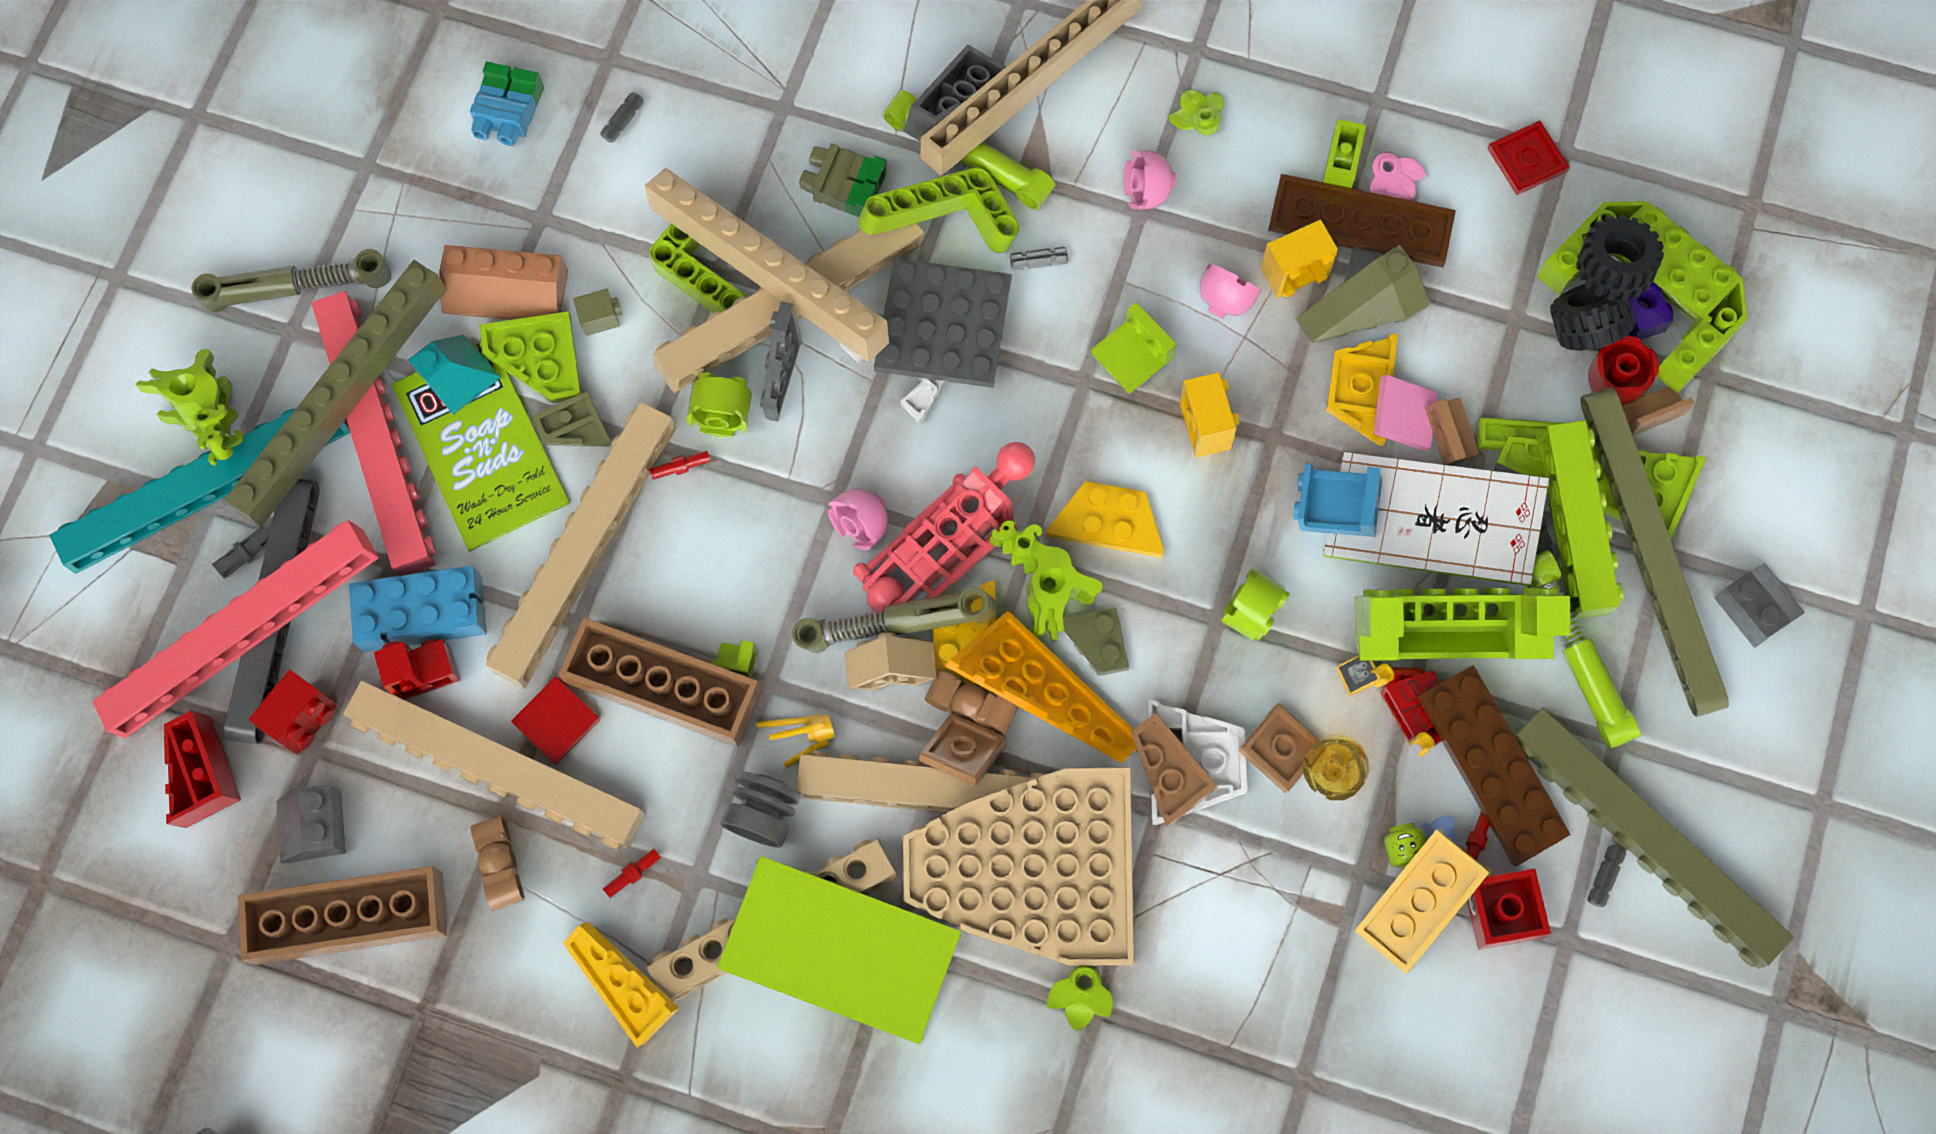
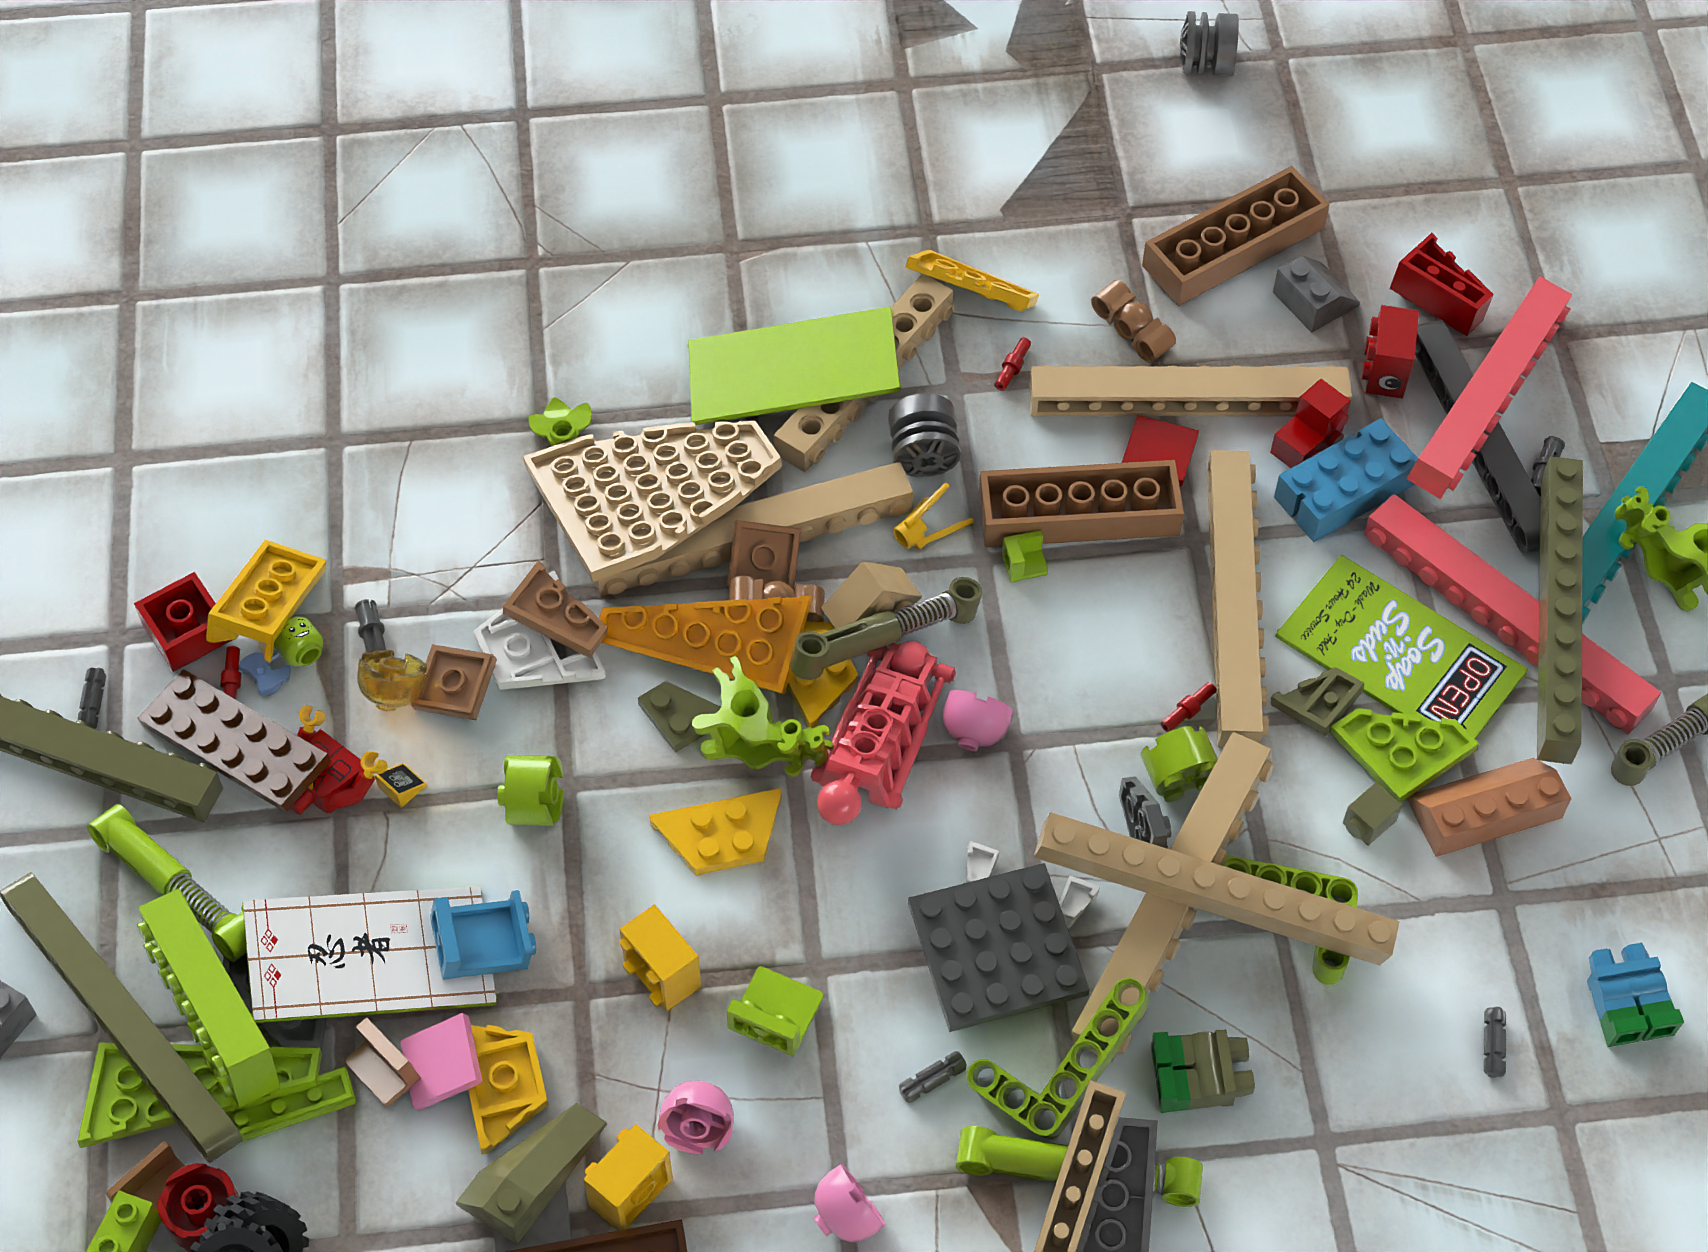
camera: 150 degrees right, 15 degrees down
(454, 371) = (1473, 694): teal slope -> none
(1336, 836) = (370, 627): none -> dark grey axle
(1523, 626) = (322, 849): lime wedge -> none

